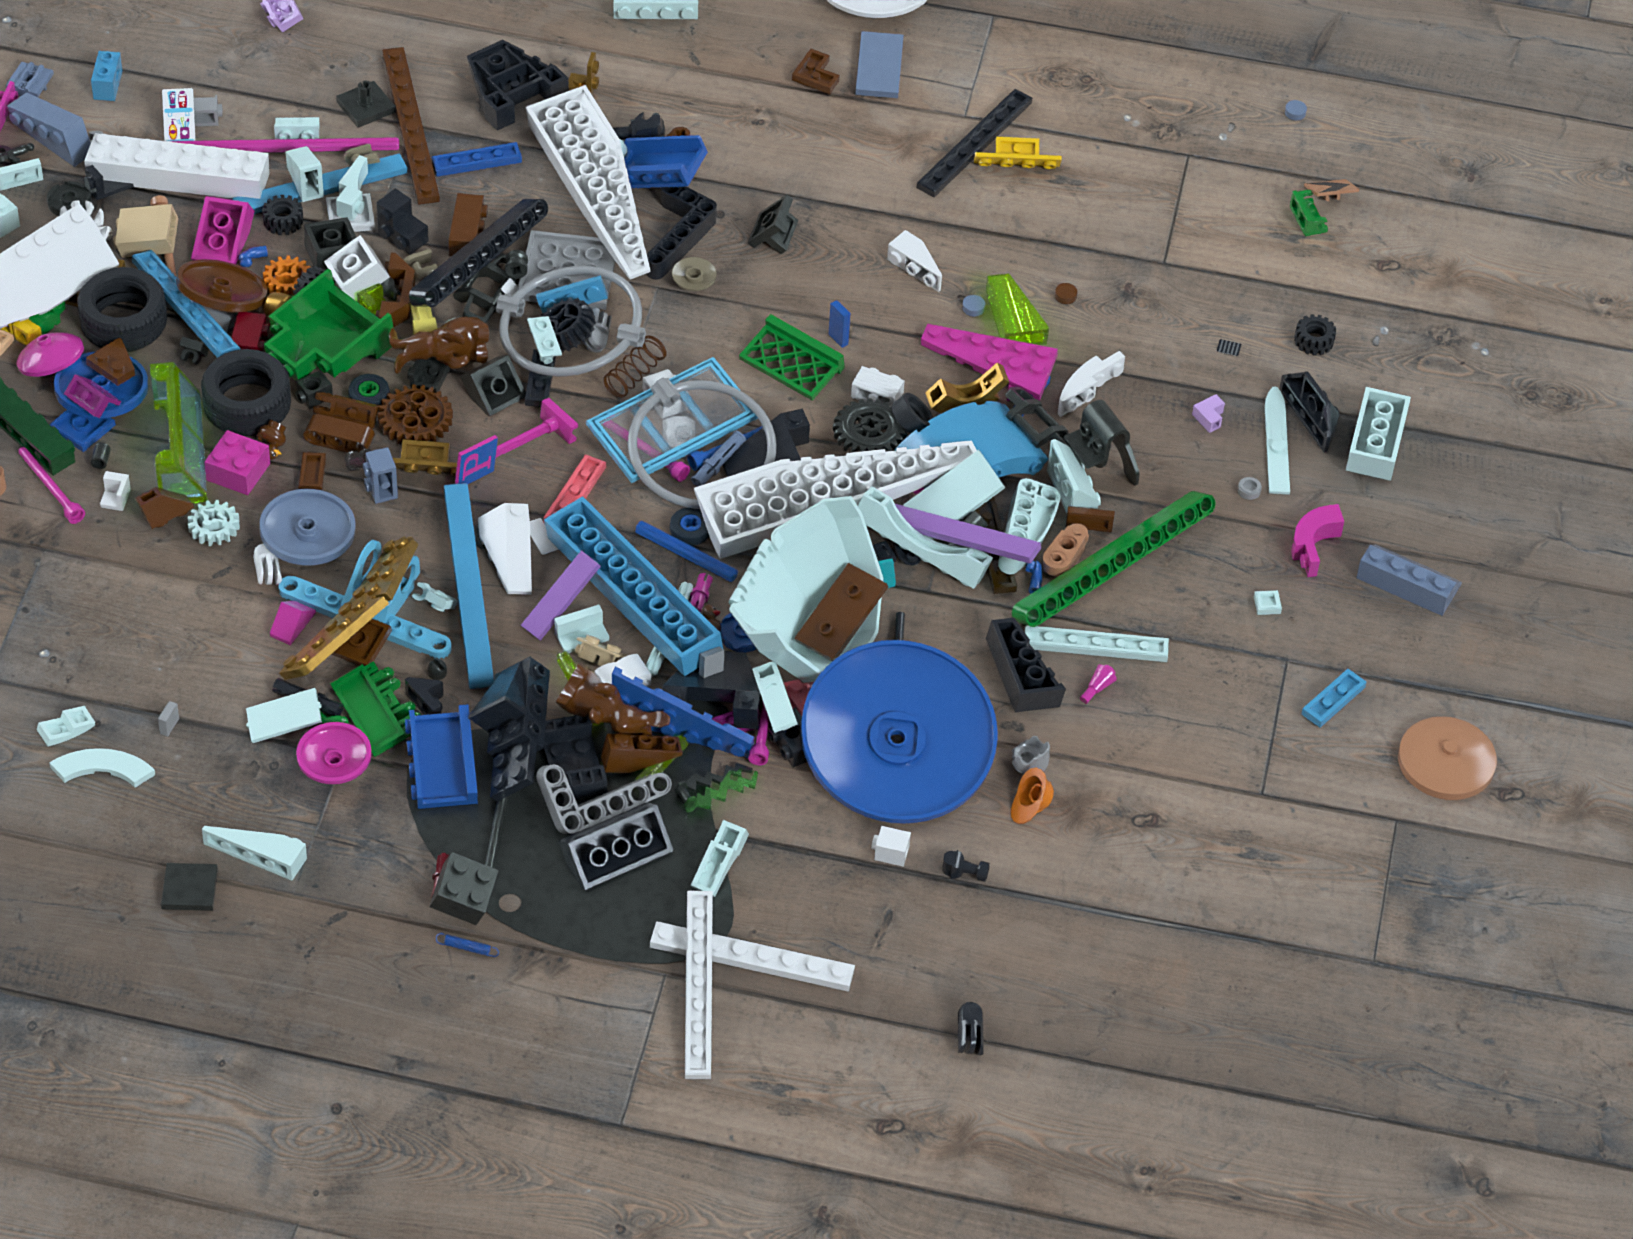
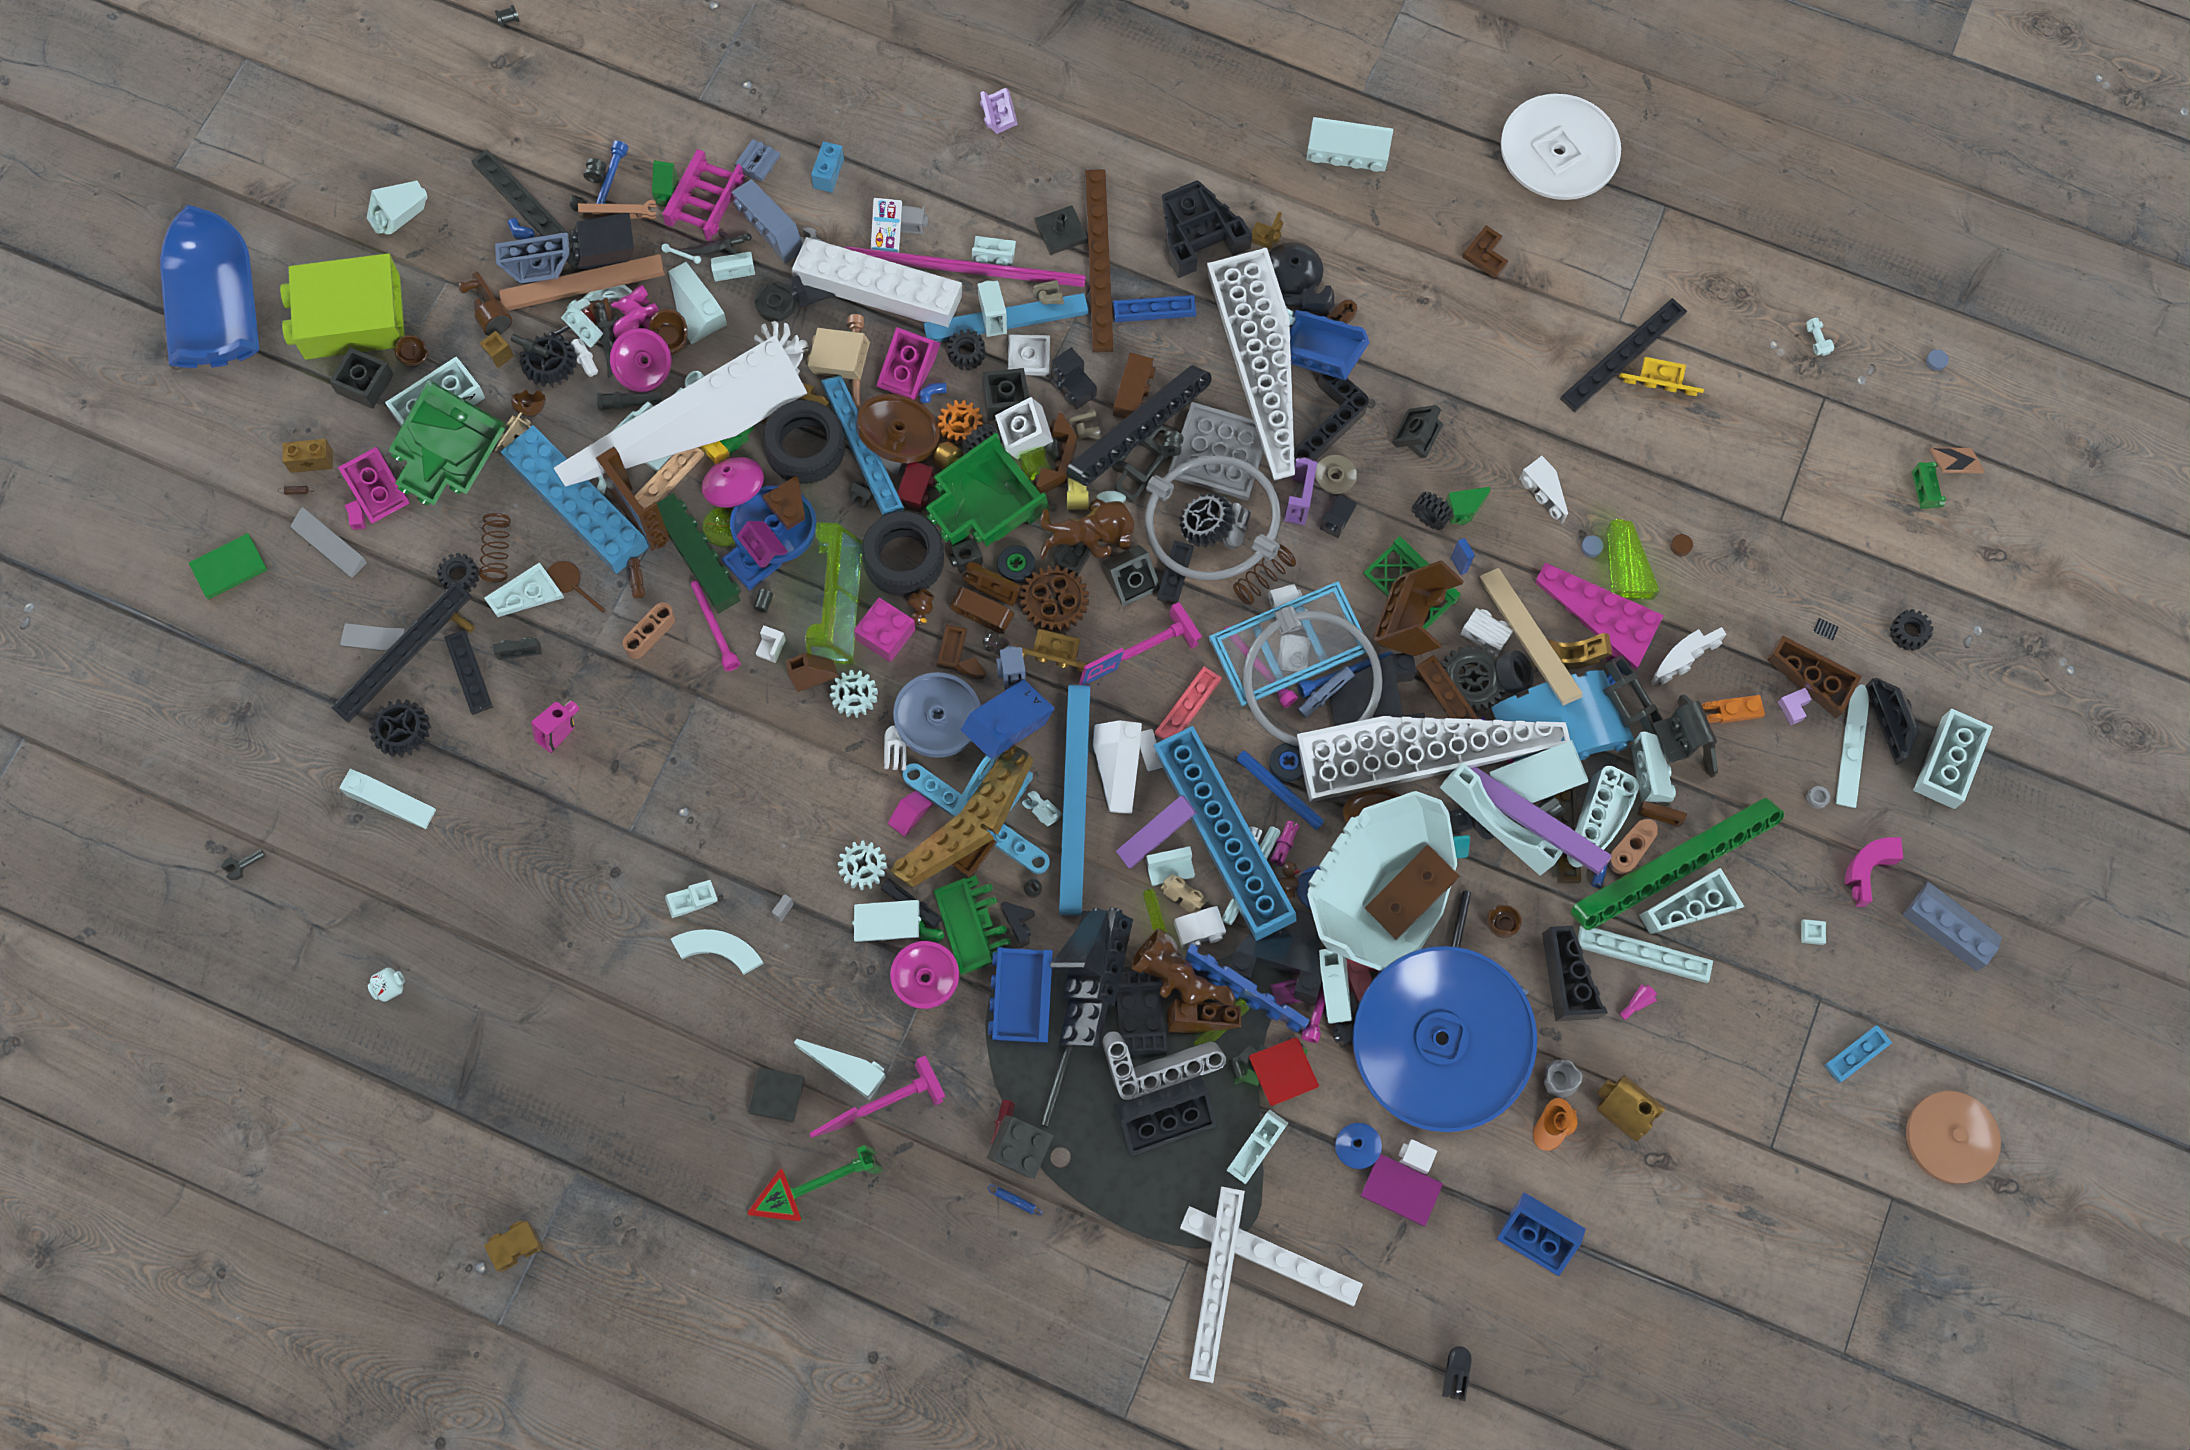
camera: 10 degrees right, 20 degrees up
(43, 399) = (717, 526): none -> clear neon green piece
(211, 979) = (779, 1200): none -> green piece
(248, 670) = (858, 874): none -> light aqua gear
(267, 888) = (926, 1082): none -> dark pink piece
(336, 485) = (972, 668): none -> reddish brown tile
(350, 198) = (1030, 347): light aqua slope -> none
(384, 514) = (1007, 719): none -> blue brick
(509, 287) = (1163, 466): white sticker -> none
(544, 338) = (1185, 536): light aqua hinge -> none
(589, 290) = (1224, 486): dark azure plate -> none
(621, 105) = (1295, 277): none -> black dish
(659, 289) = (1298, 507): none -> medium lavender panel
(701, 313) = (1338, 516): none -> black bracket
(711, 662) = (1283, 933): light grey tile -> none
(735, 792) = (1283, 1071): none -> red sticker
(790, 290) = (1432, 510): none -> black tyre
(791, 371) = (1408, 606): none -> reddish brown windscreen
(827, 847) = (1361, 1156): none -> blue dish
(835, 282) = (1466, 504): none -> green slope
(836, 434) = (1444, 689): none -> reddish brown fence
(879, 64) = (1548, 250): sand blue tile -> none
(880, 880) = (1401, 1190): none -> magenta tile
(923, 379) = (1531, 637): none -> tan tile
(943, 631) = (1504, 921): none -> reddish brown hair
(955, 866) = (1473, 1186): black leg -> none
(1035, 895) = (1541, 1234): none -> blue slope
(1103, 768) = (1628, 1107): none -> pearl gold cylinder
(1136, 589) = (1698, 901): none -> light aqua wedge
(1151, 424) = (1735, 709): none -> orange hinge
(1176, 111) = (1821, 347): none -> light aqua bar
(1234, 382) = (1824, 679): none -> reddish brown wedge

